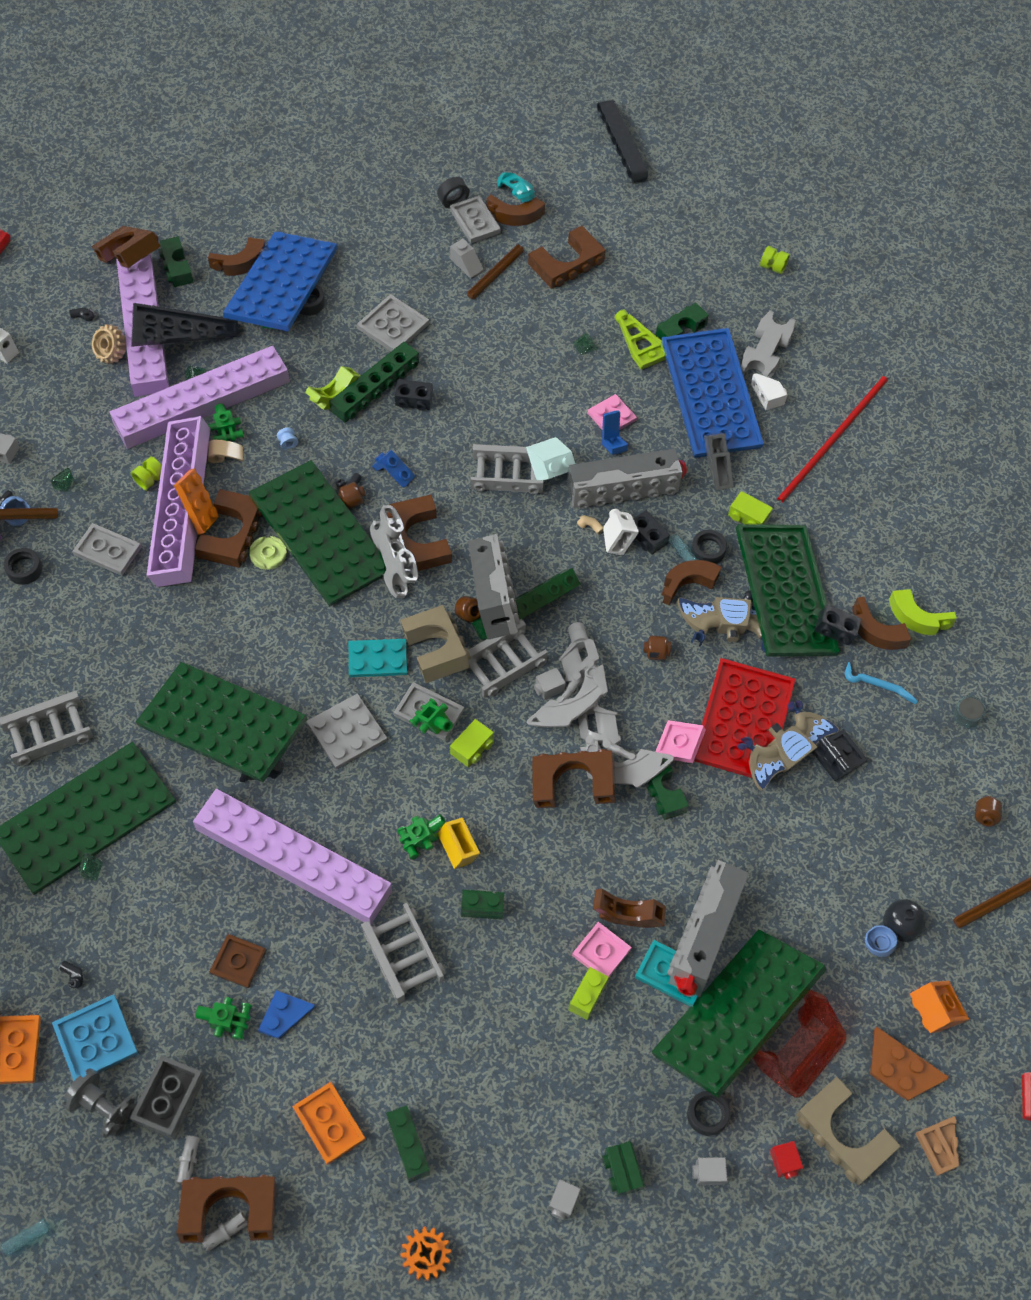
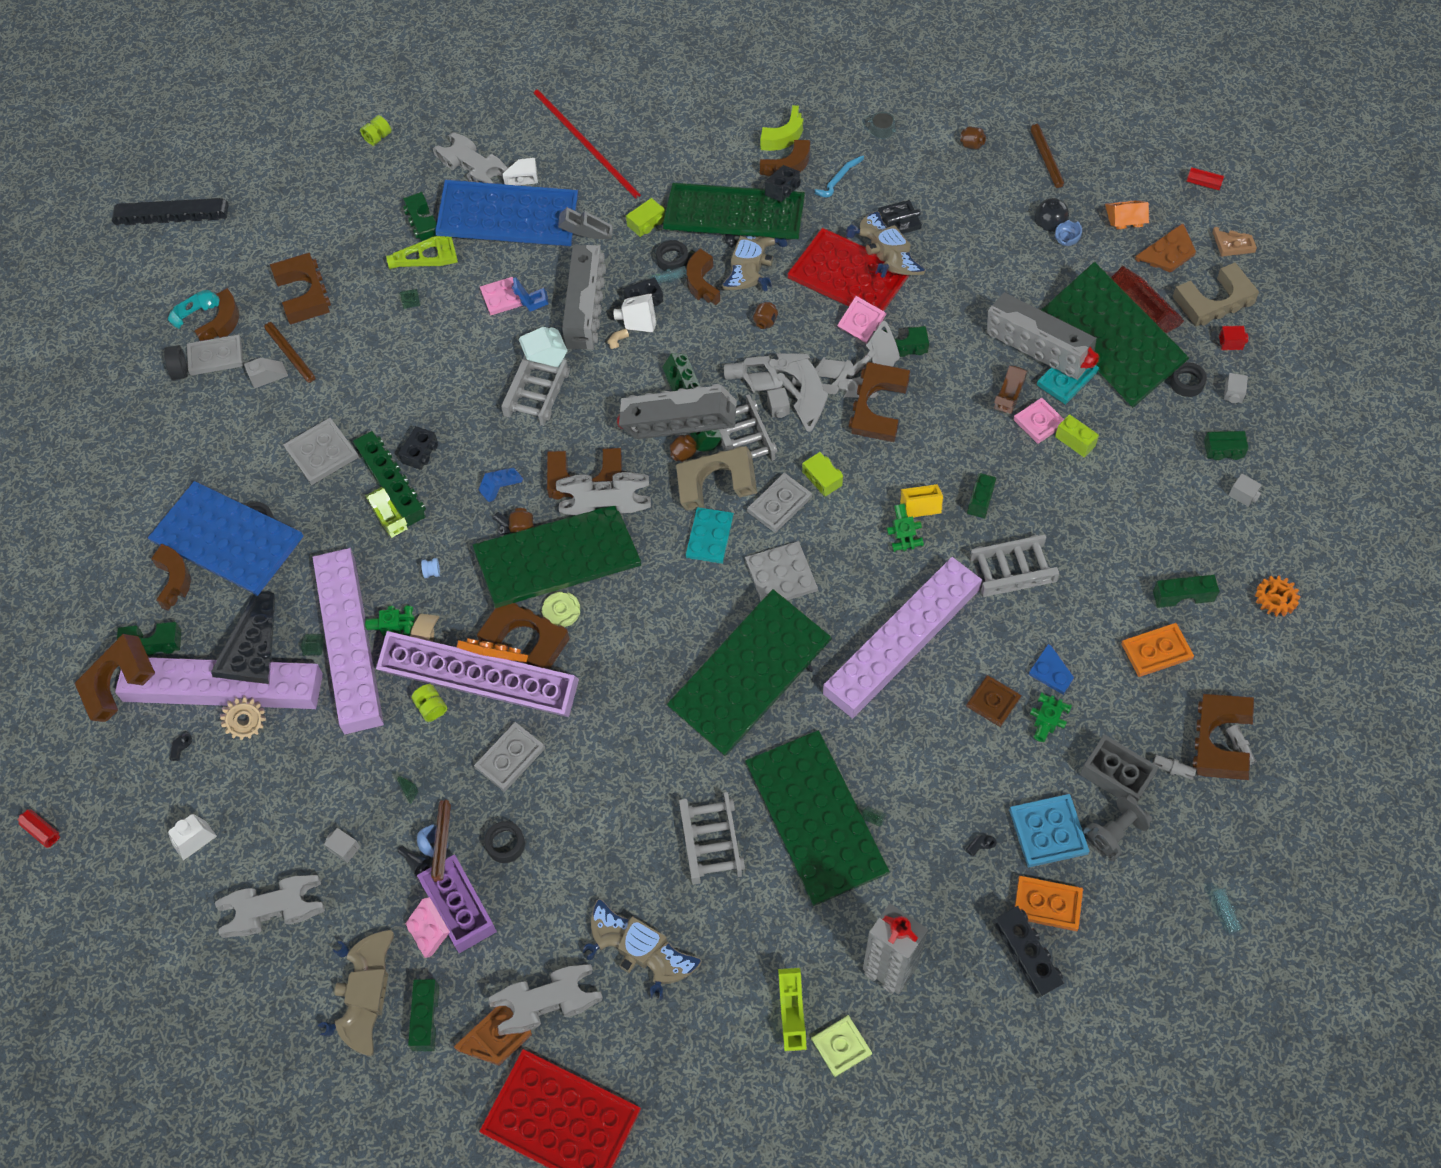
camera: 70 degrees left, 0 degrees up
(432, 718) = (796, 493): green piece -> none

